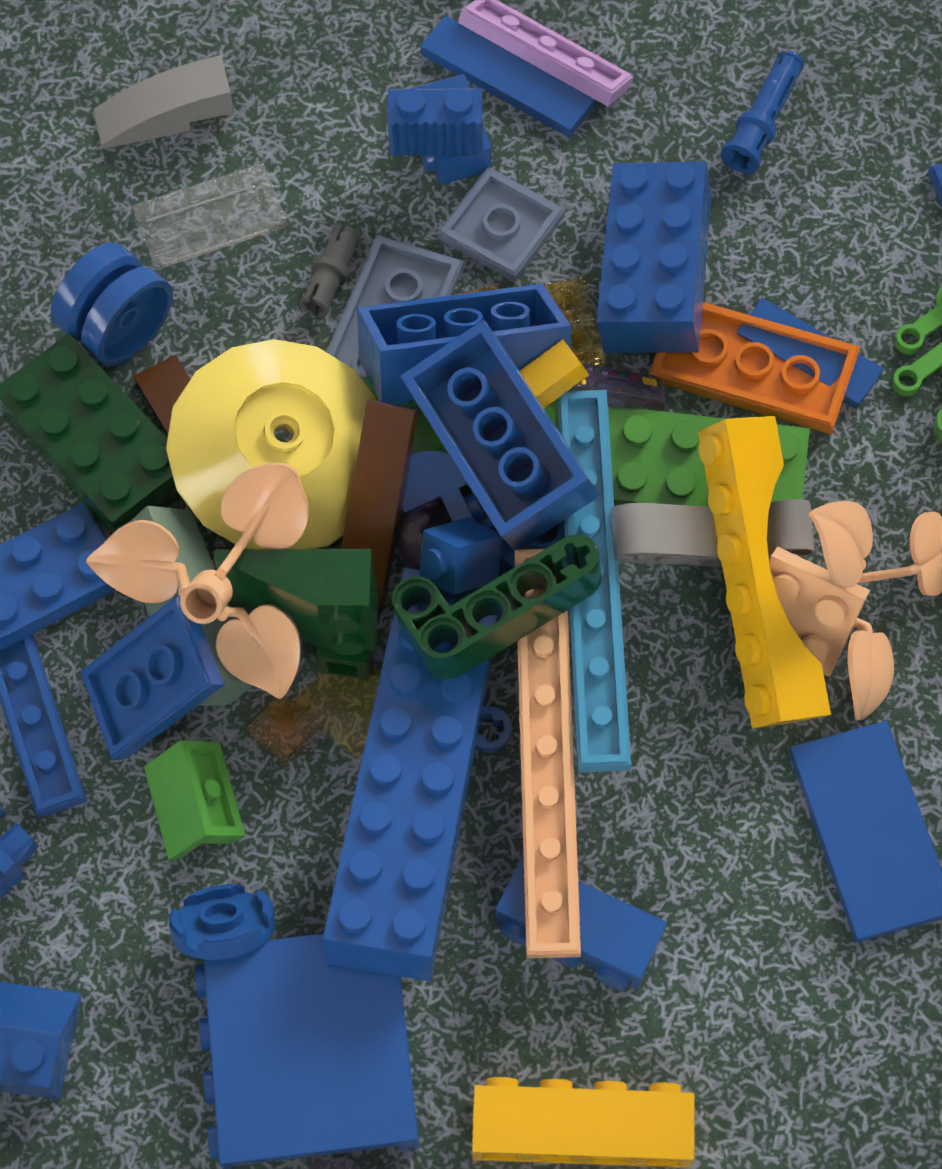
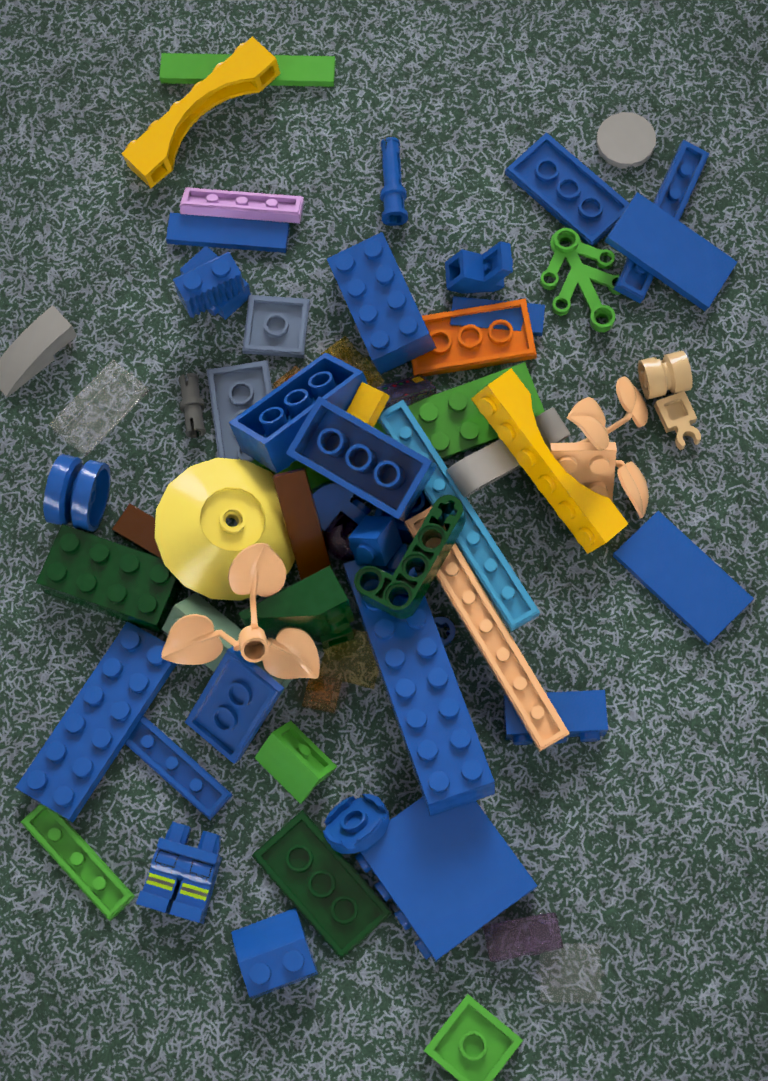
camera: 25 degrees left, 5 degrees up
(133, 983) = (322, 885): none -> dark green tile
(583, 1124) = (619, 827): yellow brick -> none
(814, 282) = (479, 272): none -> blue brick

